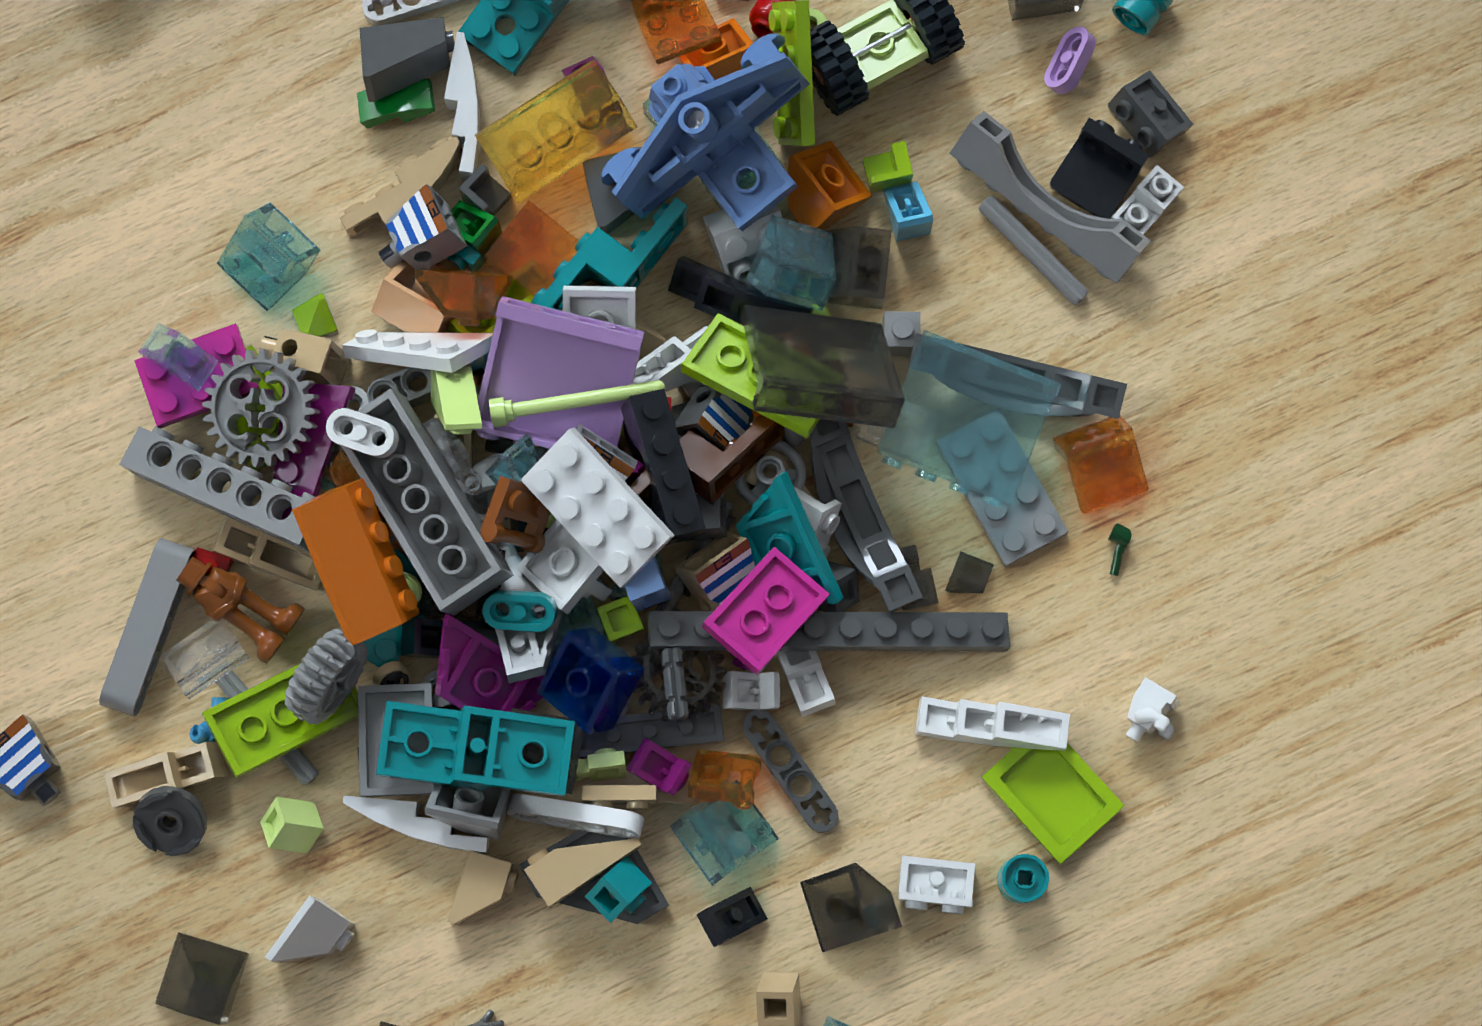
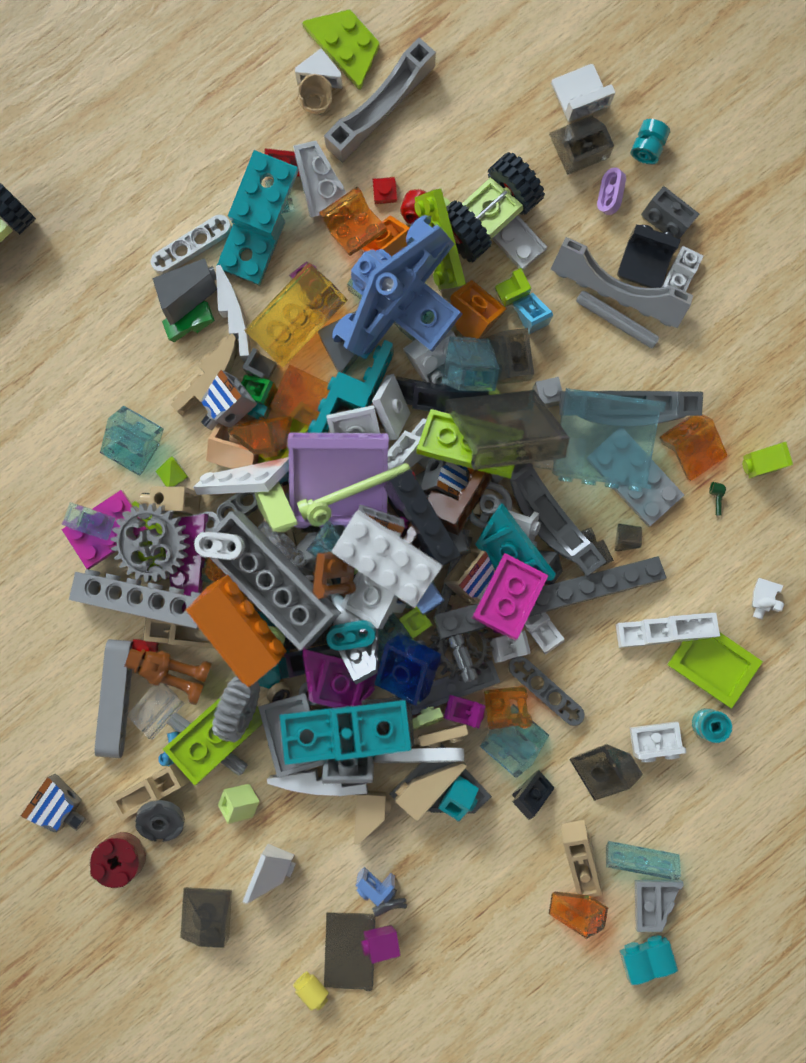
camera: 10 degrees left, 5 degrees up
(72, 867) = (105, 867): none -> dark red brick
(454, 989) = (371, 888): none -> medium blue bracket
(513, 415) = (318, 514): none -> yellowish green plate
(662, 297) = (391, 407): none -> white plate
(915, 103) = (519, 243): none -> white plate
(1199, 509) = (767, 460): none -> lime slope

